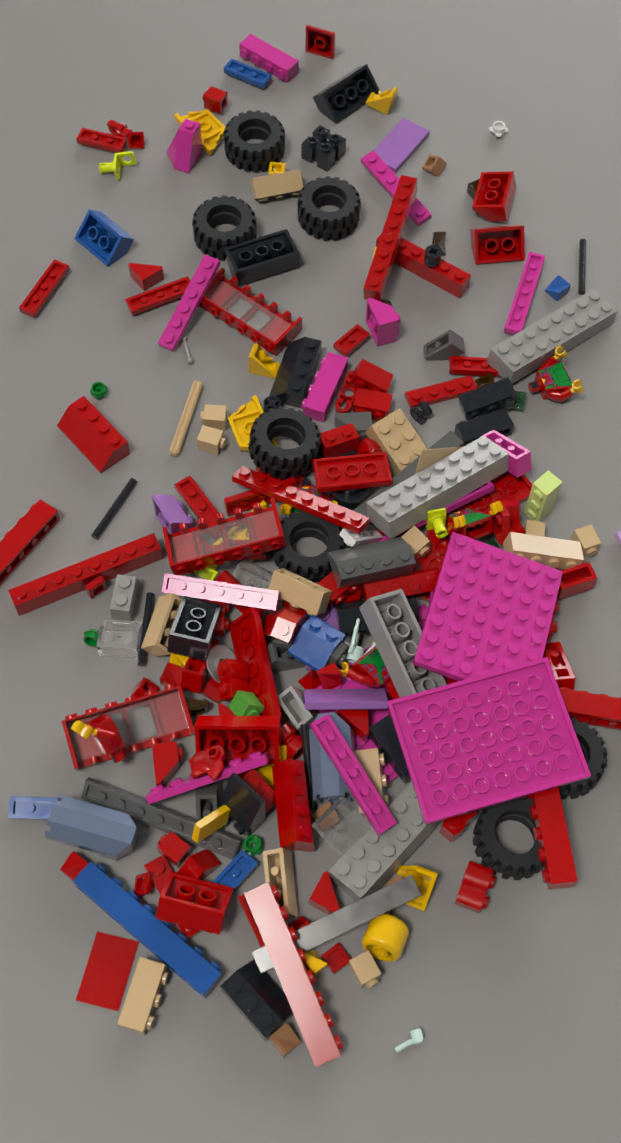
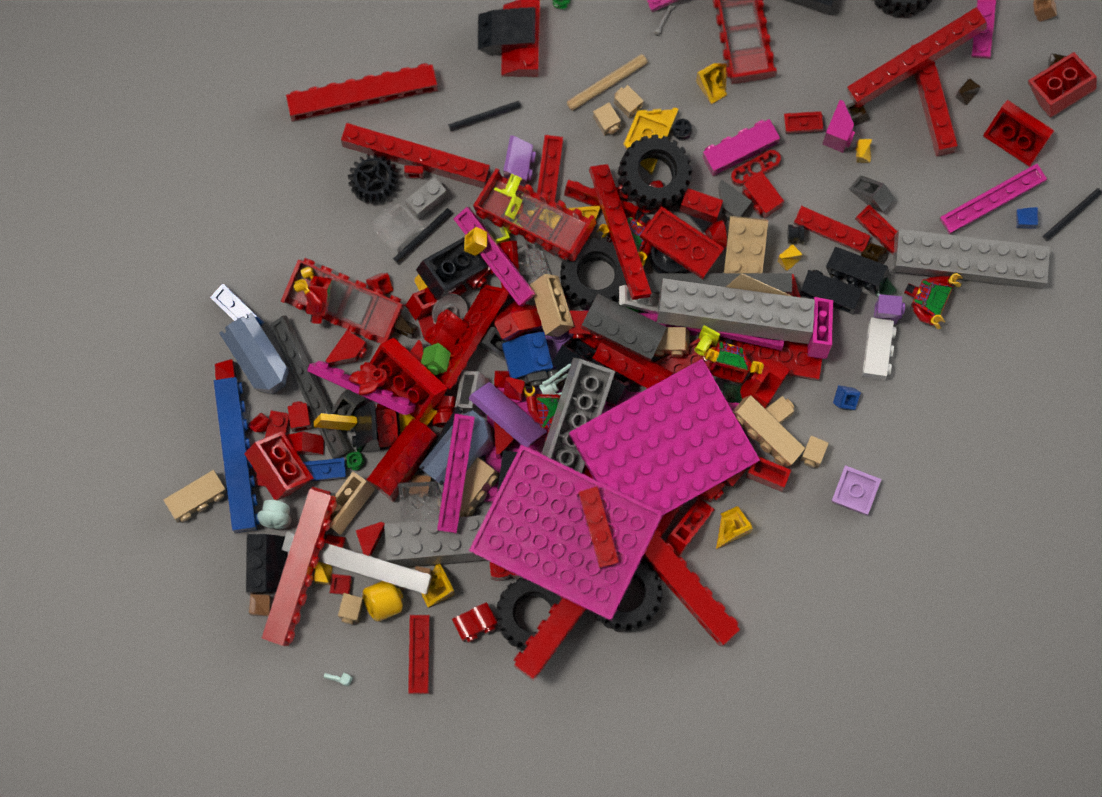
camera: 45 degrees right, 15 degrees up
(77, 433) = (506, 30): none -> black slope
(83, 614) = (360, 171): none -> black gear
(91, 637) = (377, 208): green plate -> none
(107, 971) = (189, 459): red piece -> none
(160, 625) = (433, 242): tan brick -> none
(171, 675) = (406, 289): red slope -> none
(192, 535) = (510, 191): none -> neon yellow bracket
(196, 591) = (475, 241): none -> yellow slope
(228, 948) = (274, 515): none -> light aqua piece
(296, 371) = (730, 114): black slope -> none
(371, 377) = (781, 172): red brick -> none
(408, 327) = (863, 151): none -> yellow slope
(432, 255) = (935, 107): black wheel -> none
(432, 429) = (789, 257): none -> yellow slope
(456, 956) = (419, 654): none -> red plate
(511, 710) = (598, 527): none -> red plate
(535, 407) = (889, 308): none -> medium lavender brick
(542, 496) = (808, 389): yellowish green brick -> none
(554, 440) = (878, 349): none -> white brick
(568, 489) = (846, 397): none -> blue slope
(586, 641) = (732, 526): none -> yellow slope

